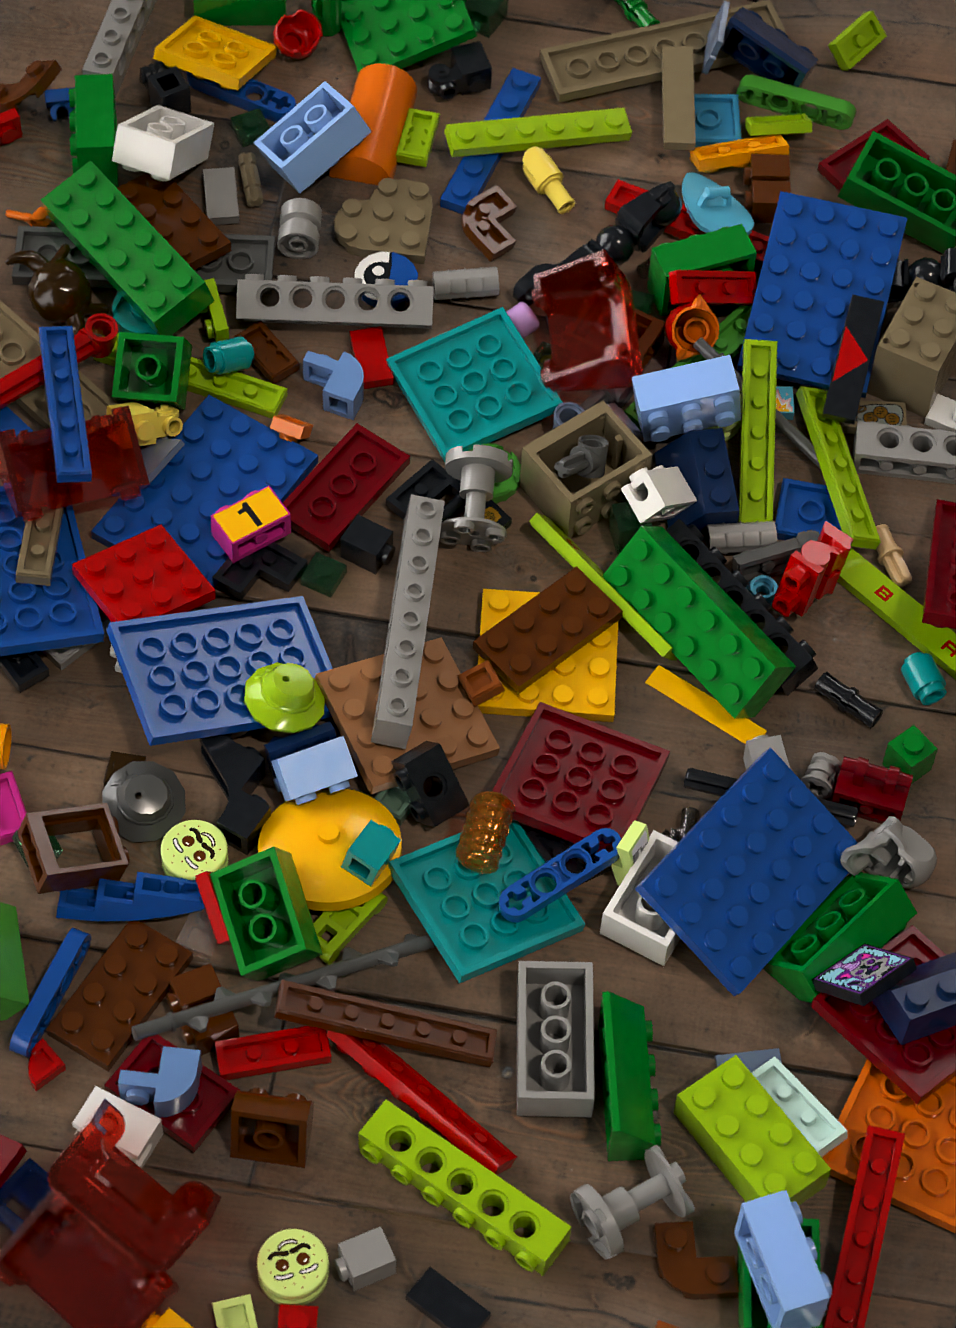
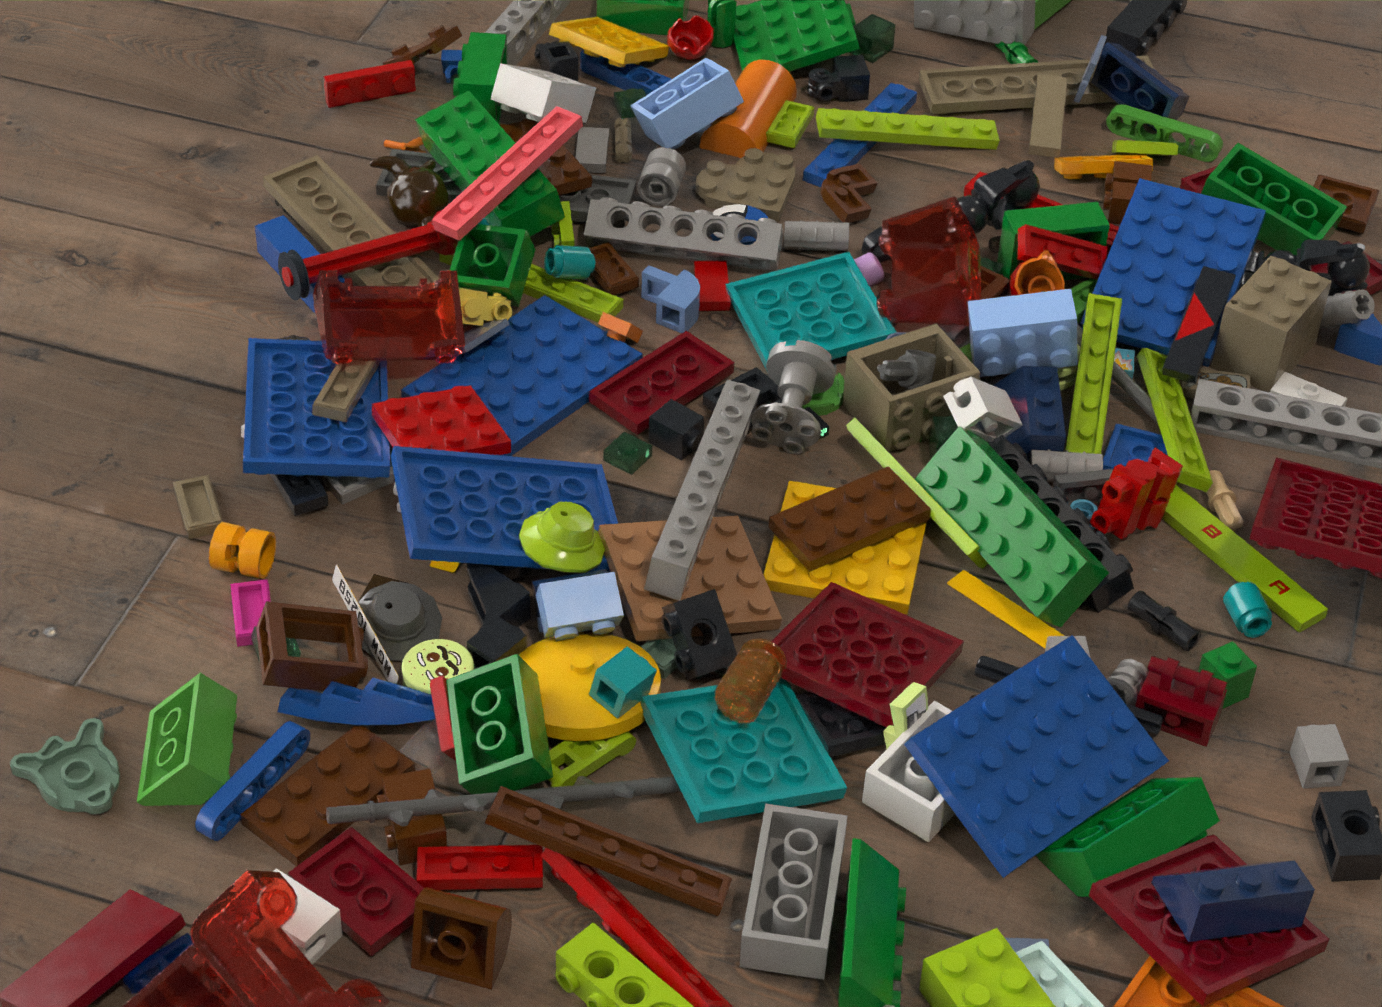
camera: 10 degrees right, 15 degrees down
(44, 1065) = (229, 850): red tile -> none
(65, 404) = (395, 270): blue tile -> none
(122, 822) = (369, 634): none -> white sticker
(154, 271) = (507, 173): none -> coral plate
(171, 1088) = (354, 881): medium blue brick -> none
(250, 523) = (560, 394): brick -> none
(270, 563) = (562, 430): black plate -> none
(481, 683) = (771, 556): dark orange tile -> none
(547, 178) = (910, 165): light yellow arm -> none
(556, 870) = (822, 725): blue beam -> none
(713, 205) = (1067, 192): medium azure shield -> none
(716, 118) = (1082, 138): dark azure tile -> none
(857, 40) = (1229, 94): lime plate -> none
(864, 974) = (1153, 862): tile -> none
(892, 853) = (1197, 754): light grey head -> none

